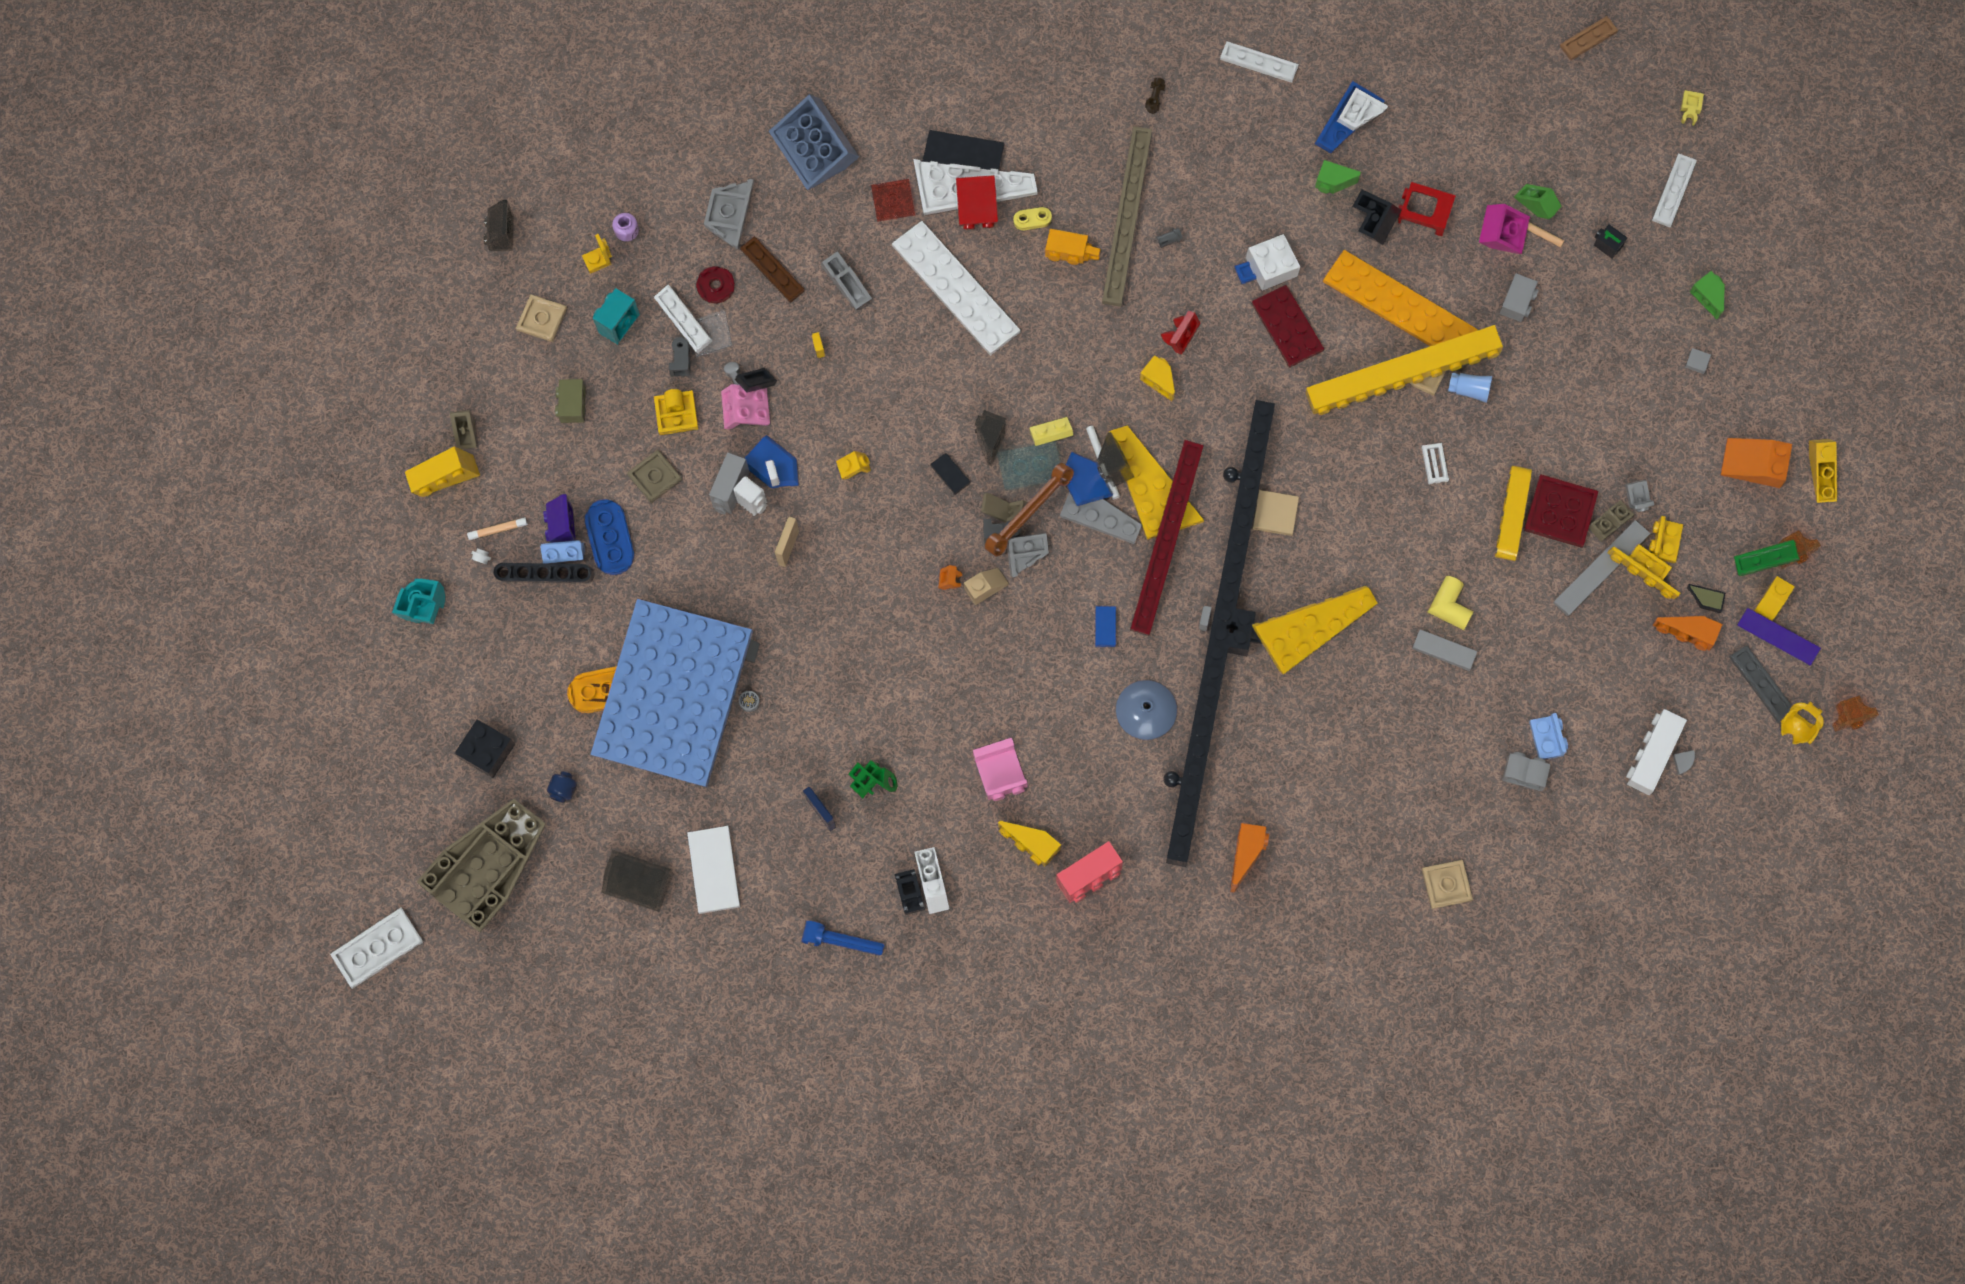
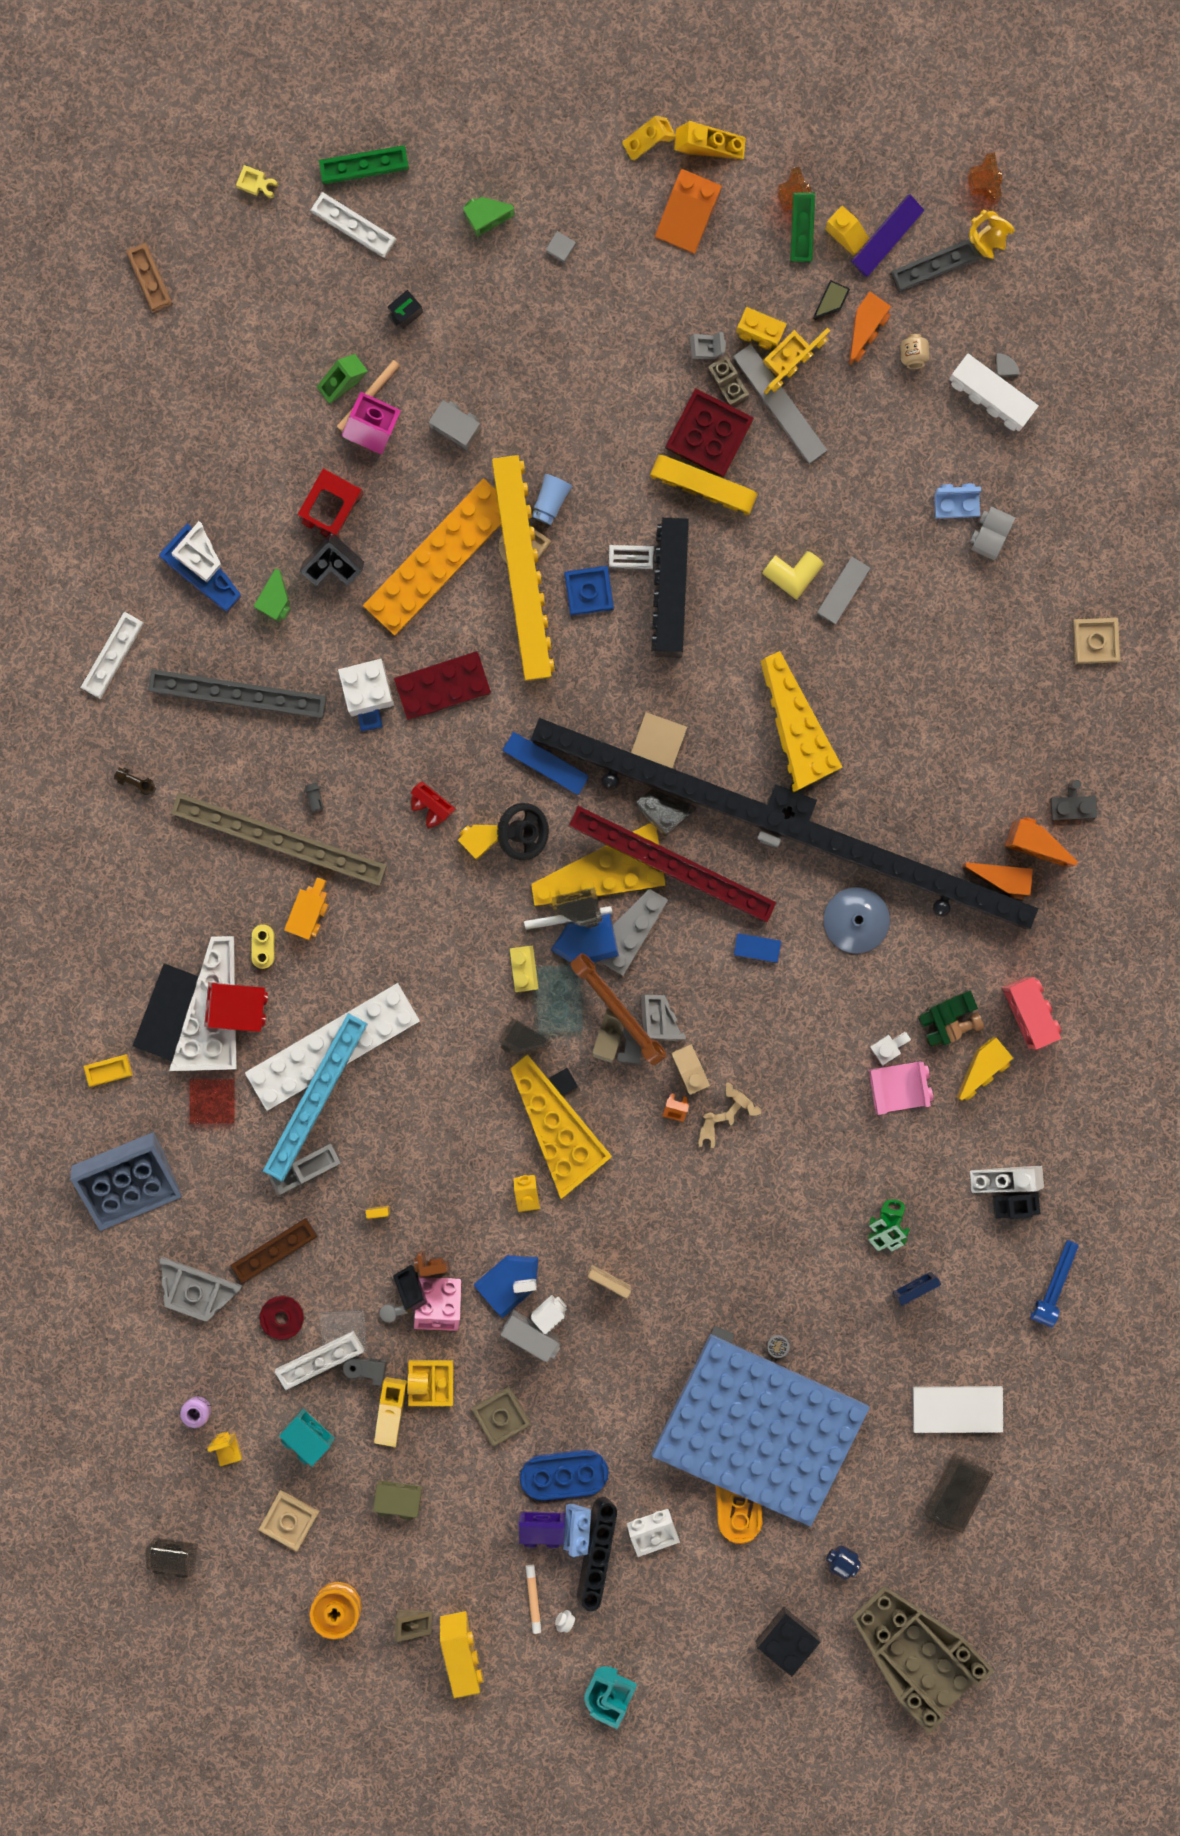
camera: 80 degrees left, 15 degrees up
(376, 948) = (985, 1780): white tile -> none
(469, 365) = (334, 1623): none -> light orange wheel
(567, 618) = (652, 1532): none -> white bracket
(646, 382) = (390, 1411): none -> yellow slope
(779, 387) = (434, 1266): none -> dark orange bracket
(905, 115) = (108, 1070): none -> yellow tile
(910, 276) = (315, 1097): none -> medium azure tile
(910, 485) = (563, 1136): none -> yellow wing
(965, 632) = (708, 1129): none -> tan piece
(1035, 754) = (887, 1049): none -> white plate
(1070, 799) = (944, 1019): none -> dark green hips
(1188, 414) = (514, 831): none -> black wheel
(1208, 837) = (1006, 879): none -> orange slope
(1213, 526) = (664, 810): none -> clear smoke wing
(1236, 421) = (545, 763): none -> blue tile
(1246, 163) = (237, 693): none -> dark grey plate
(1288, 888) = (1073, 806): none -> dark grey plate
(1397, 433) = (589, 590): none -> blue tile
(1414, 496) = (671, 590): none -> black brick
(1677, 675) = (914, 351): none -> tan head
(1729, 189) = (363, 164): none -> green plate
(1822, 419) = (647, 136): none -> yellow bracket

